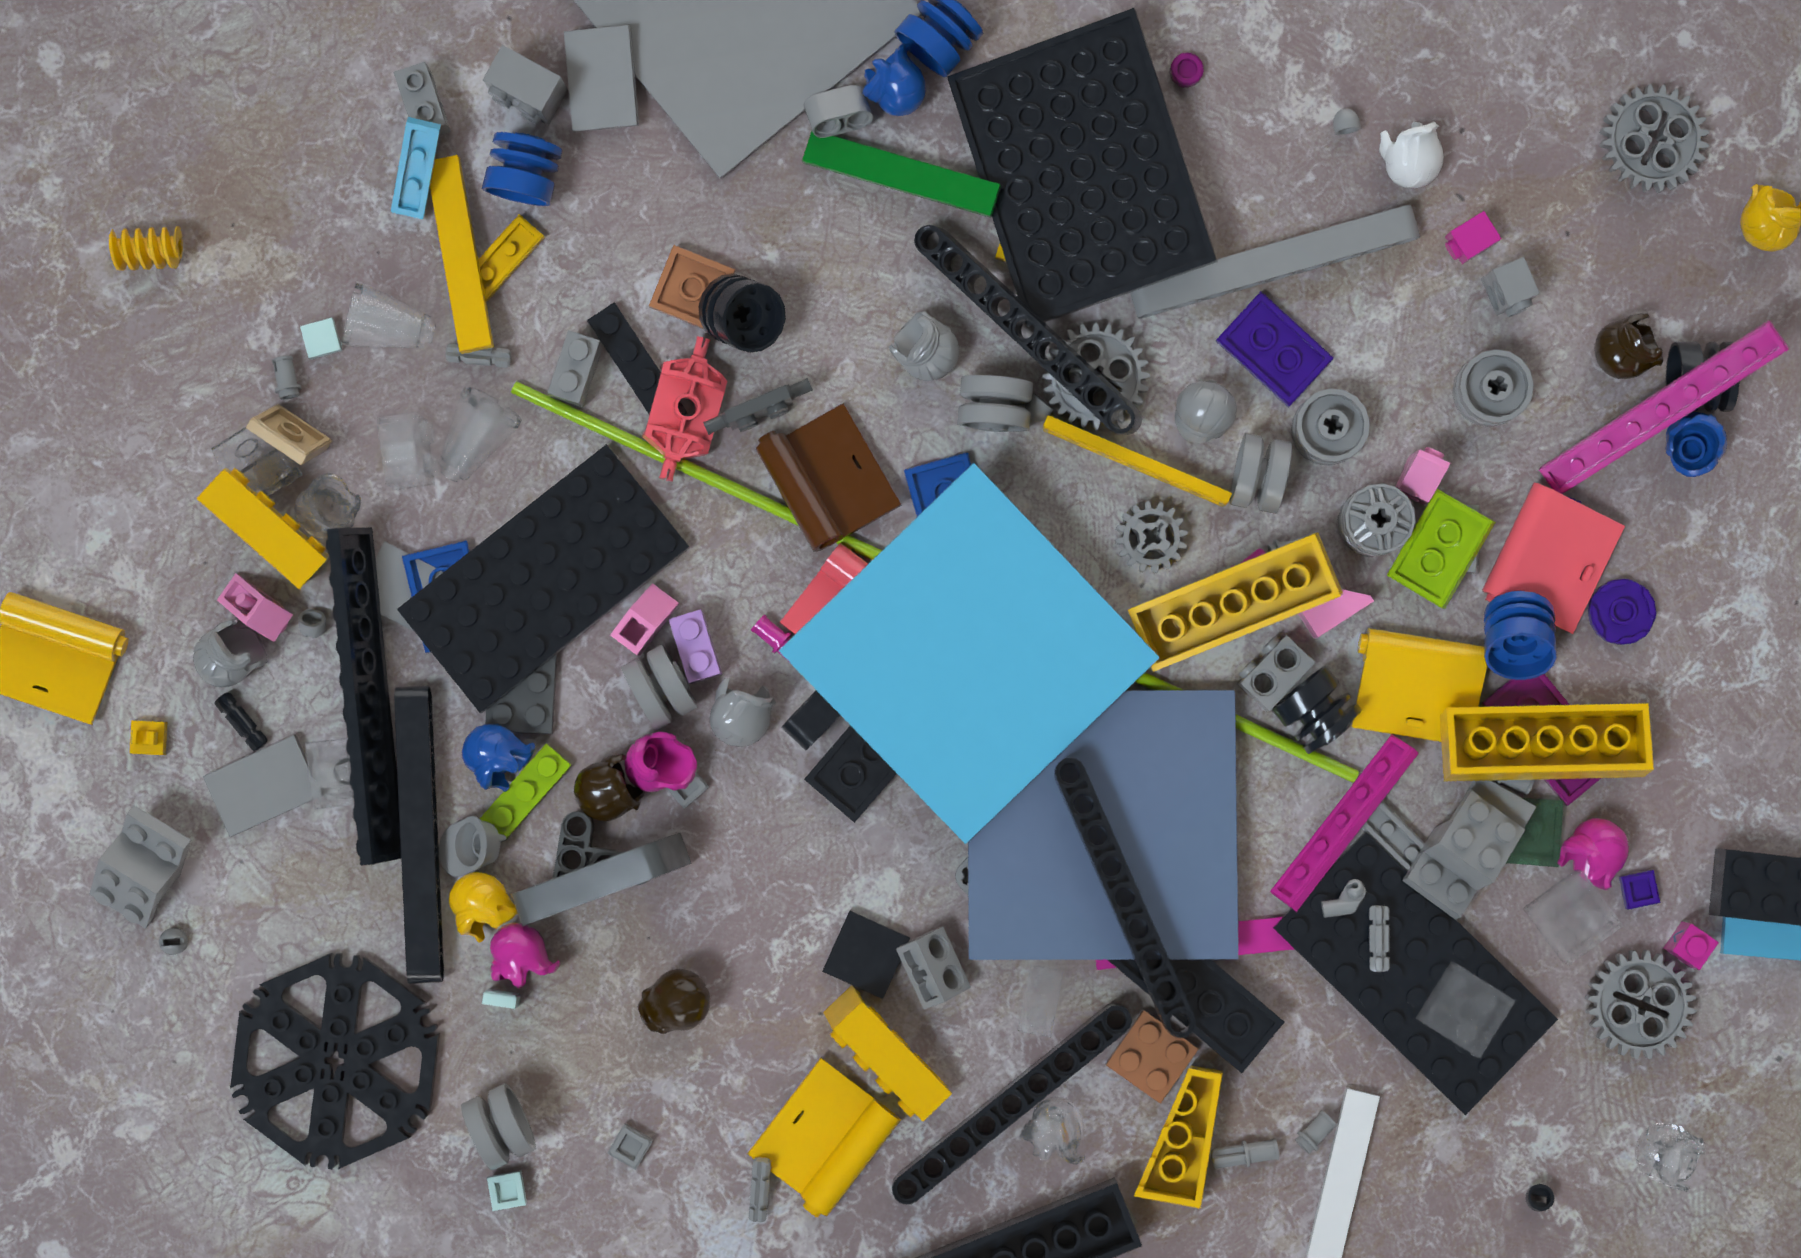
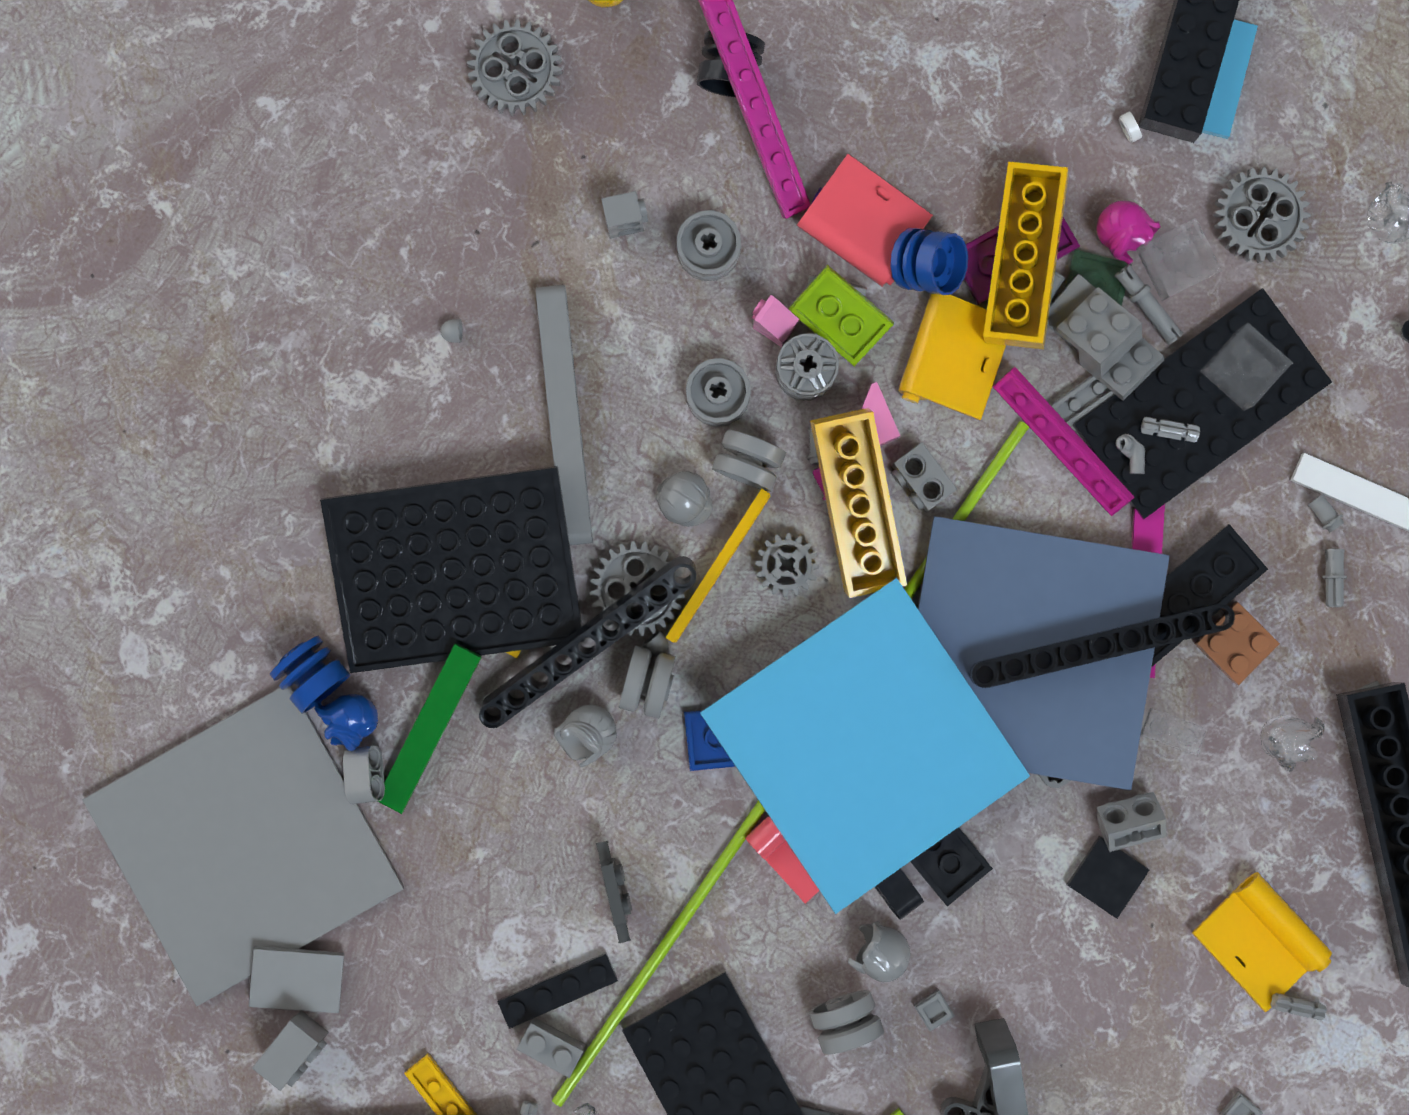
camera: 85 degrees left, 0 degrees up
(523, 163) = (365, 1065): blue wheel -> none
(603, 790) = (928, 1084): dark brown hair -> none
(644, 619) = (784, 1024): bright pink slope -> none
(660, 763) = (913, 1032): dark pink hair -> none
(669, 430) = (617, 975): coral plate -> none
(674, 1002) = (1125, 1055): dark brown hair -> none
(683, 283) = (497, 930): nougat plate -> none
(695, 646) = (815, 982): lavender brick -> none
(742, 313) = (529, 879): black wheel -> none
(771, 634) = (814, 912): dark pink axle -> none
(822, 481) = (688, 844): reddish brown door -> none
(885, 1054) = (1200, 876): yellow wedge -> none
(1003, 1119) = (1269, 783): black beam -> none
(1182, 1153) = (1329, 634): yellow wedge -> none
(1186, 70) = (381, 461): magenta tile -> none
(1274, 349) = (640, 428): dark purple tile -> none
(1317, 710) = (967, 446): black wheel -> none
(1414, 156) = (494, 278): white hair -> none
(1471, 238) = (574, 240): dark pink brick -> none
(1516, 892) = (1148, 304): none -> light grey pin
(1621, 611) = (920, 169): dark purple tile -> none
(1627, 348) = (694, 123): dark brown hair -> none
(1639, 889) = (1161, 198): dark purple tile -> none
(1690, 945) = (1219, 163): dark pink brick -> none
(1695, 443) = (789, 79): blue hair -> none
(1713, 839) = (1130, 127): none -> white tile

